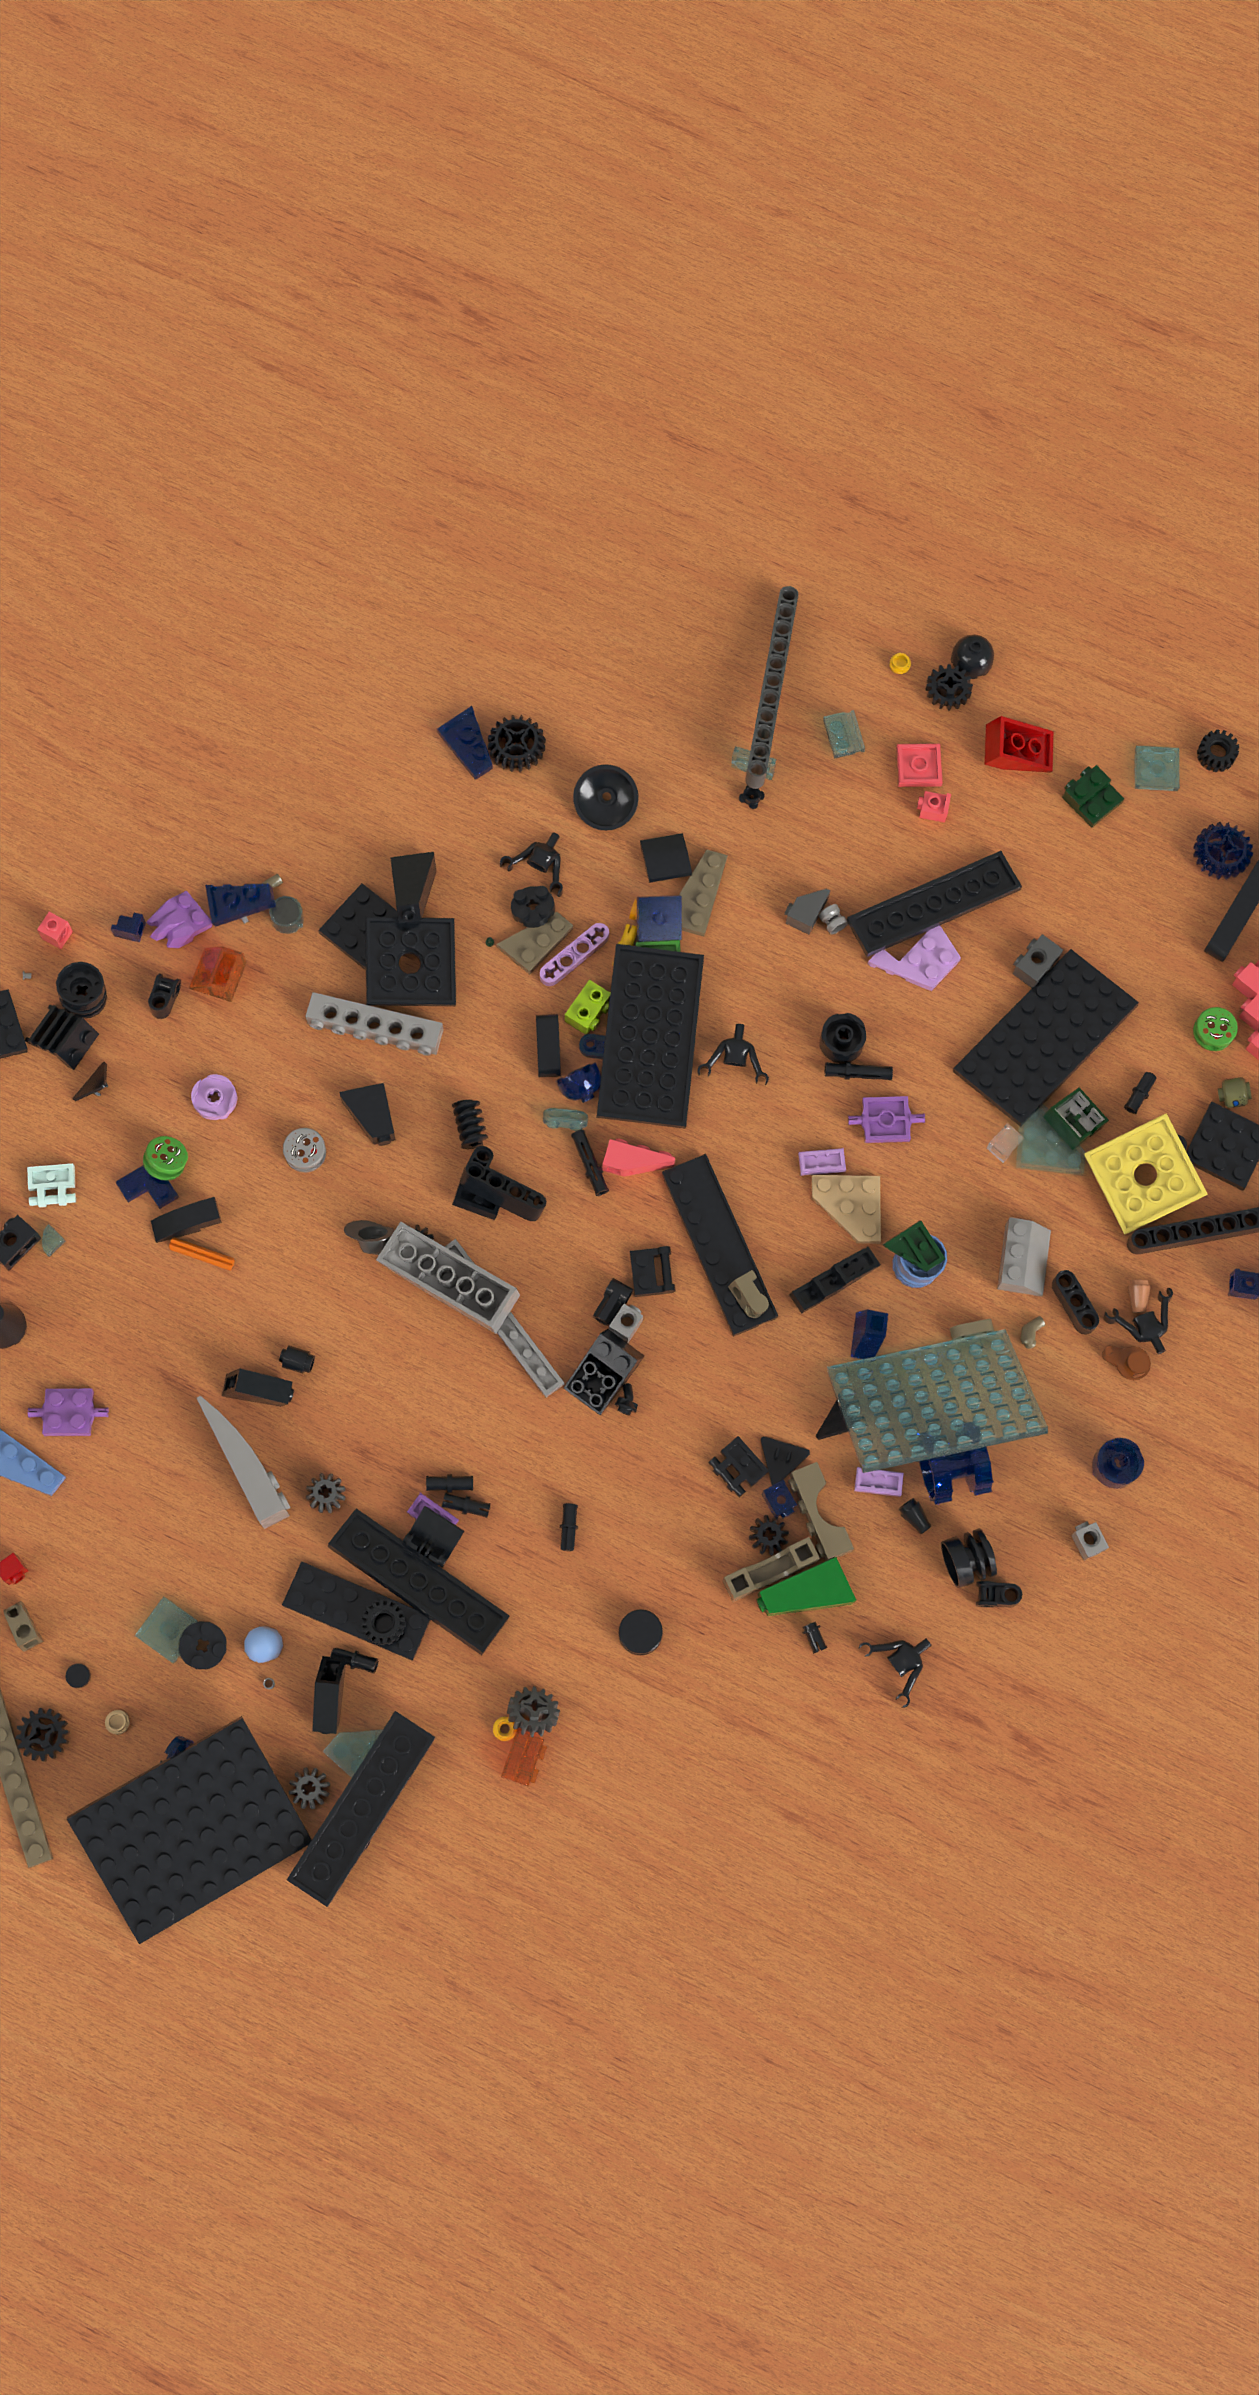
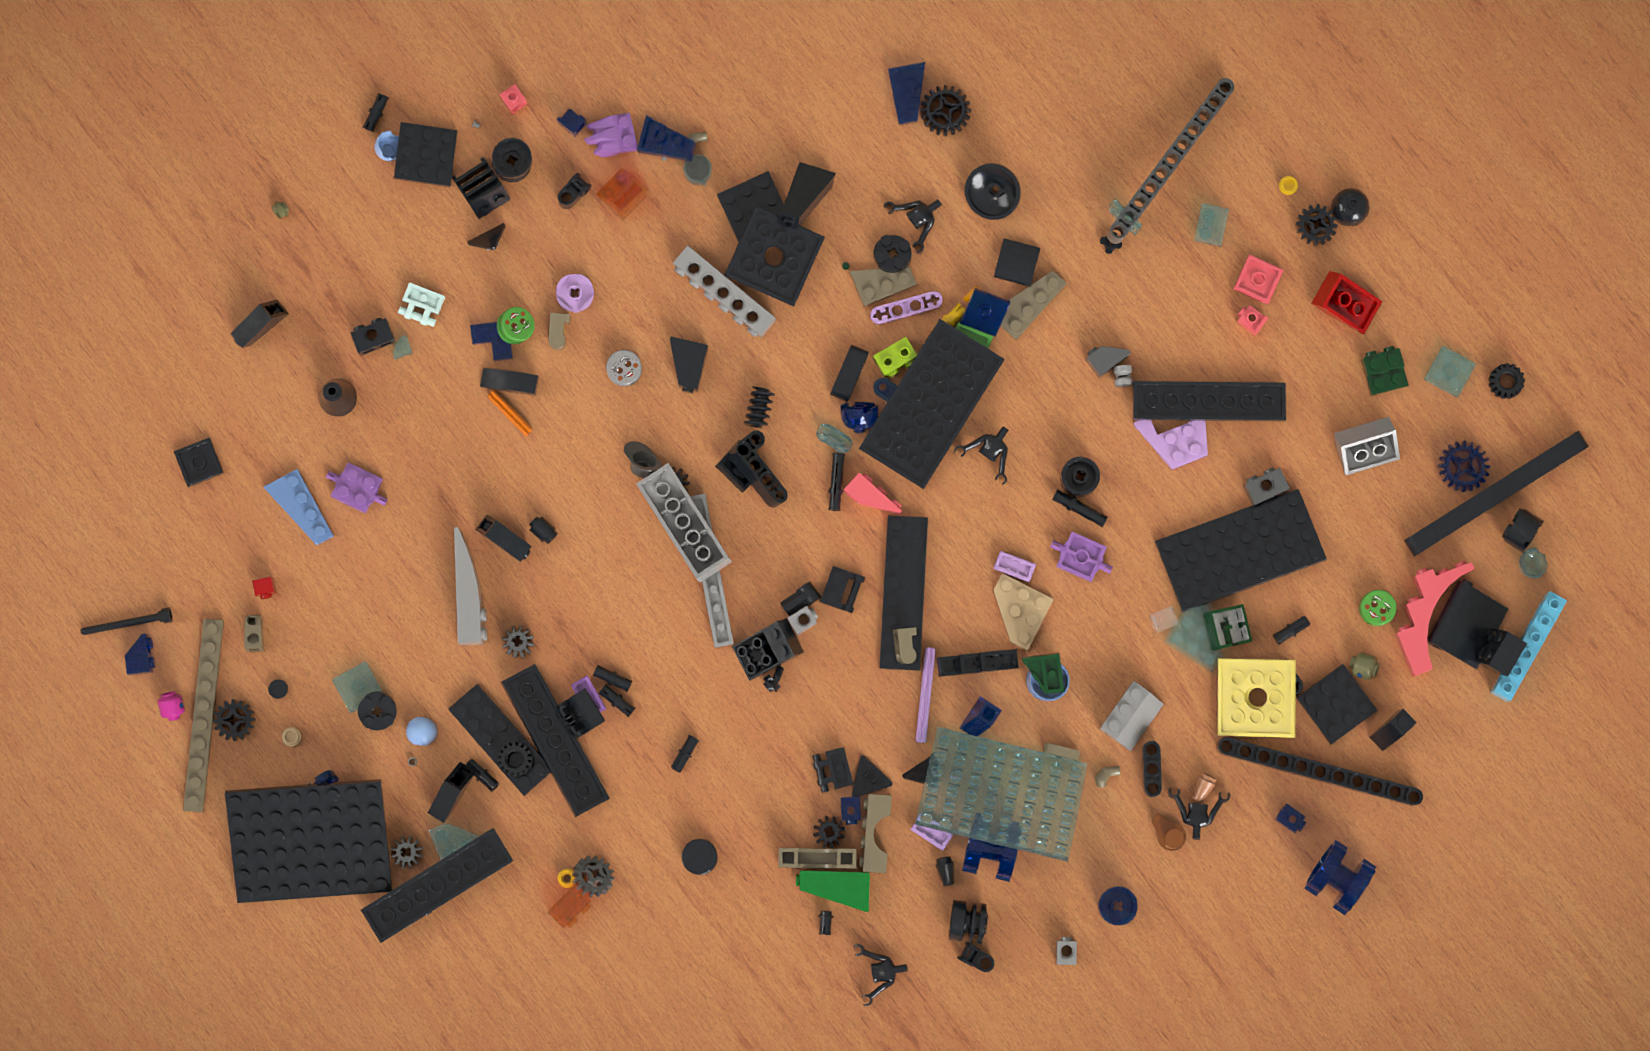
camera: 30 degrees right, 10 degrees up
(215, 1149) = (556, 330): none -> dark tan leg
(797, 1340) = (925, 695): none -> lavender axle
(1116, 874) = (1367, 445): none -> light grey slope

